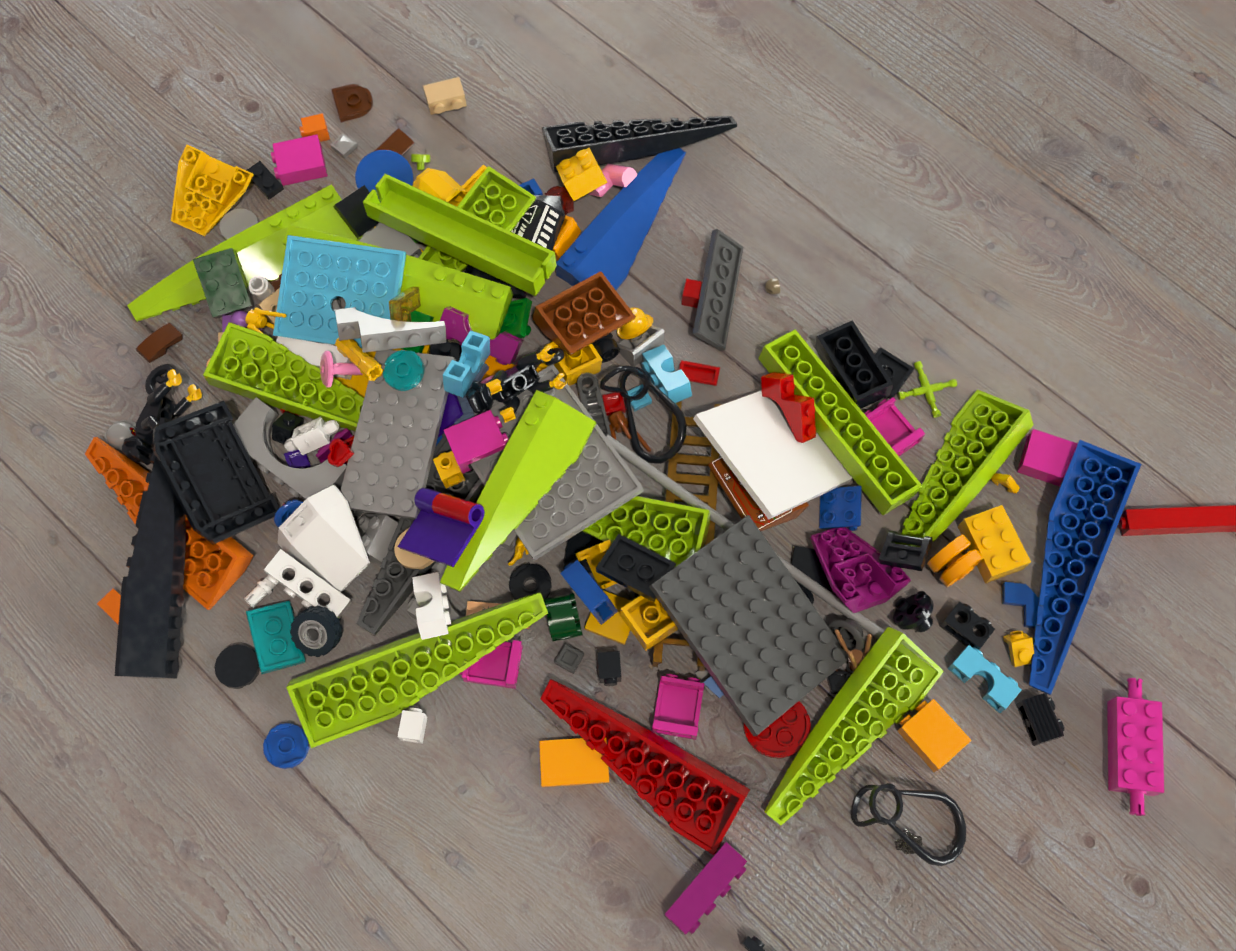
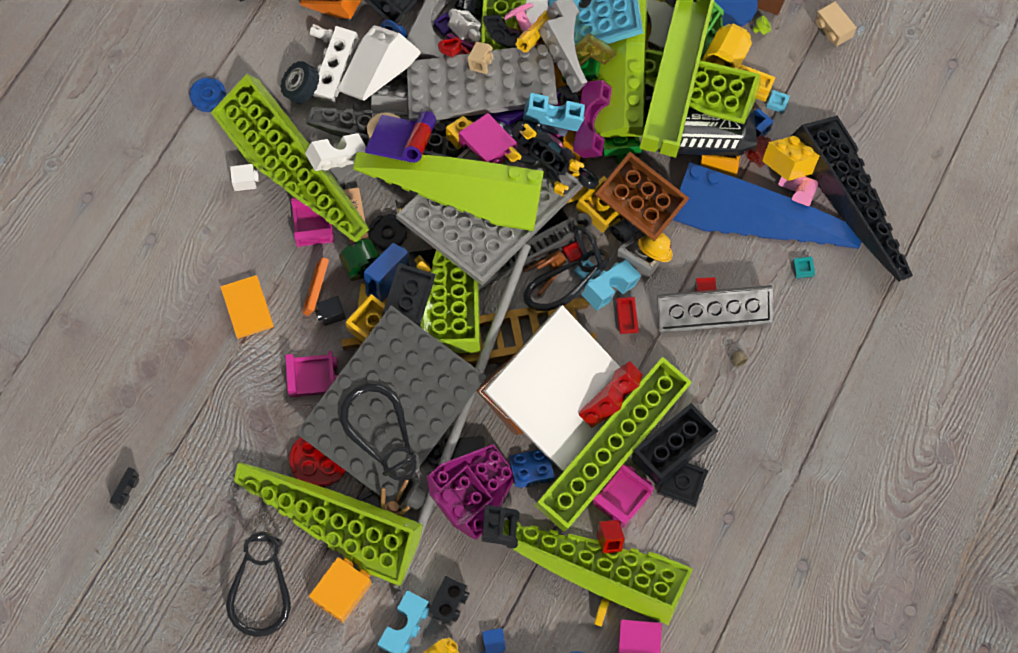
camera: 75 degrees right, 0 degrees up
(237, 666) = (260, 39): black tile -> none
(272, 637) = (289, 51): teal tile -> none
(342, 397) = (500, 32): none -> black tile
(372, 420) = (480, 57): none -> tan brick
(403, 370) = (533, 67): teal tile -> none
(509, 171) = (778, 101): none -> medium azure tile
(569, 658) = (332, 280): dark grey tile -> none
(575, 677) = (315, 286): none -> orange tile
(679, 786) = (245, 394): red wedge -> none
(692, 204) = (804, 267): none -> teal tile
(705, 888) = (167, 431): magenta brick -> none
(758, 613) = (401, 419): none -> black animal
(901, 845) = (244, 587): clear smoke plant -> none
(914, 612) = (446, 550): black plate -> none
(927, 389) = (678, 522): lime piece -> none
(933, 451) = (610, 536): none -> red brick
(957, 564) = (504, 573): light orange wheel -> none
(996, 541) = (535, 609): yellow brick -> none

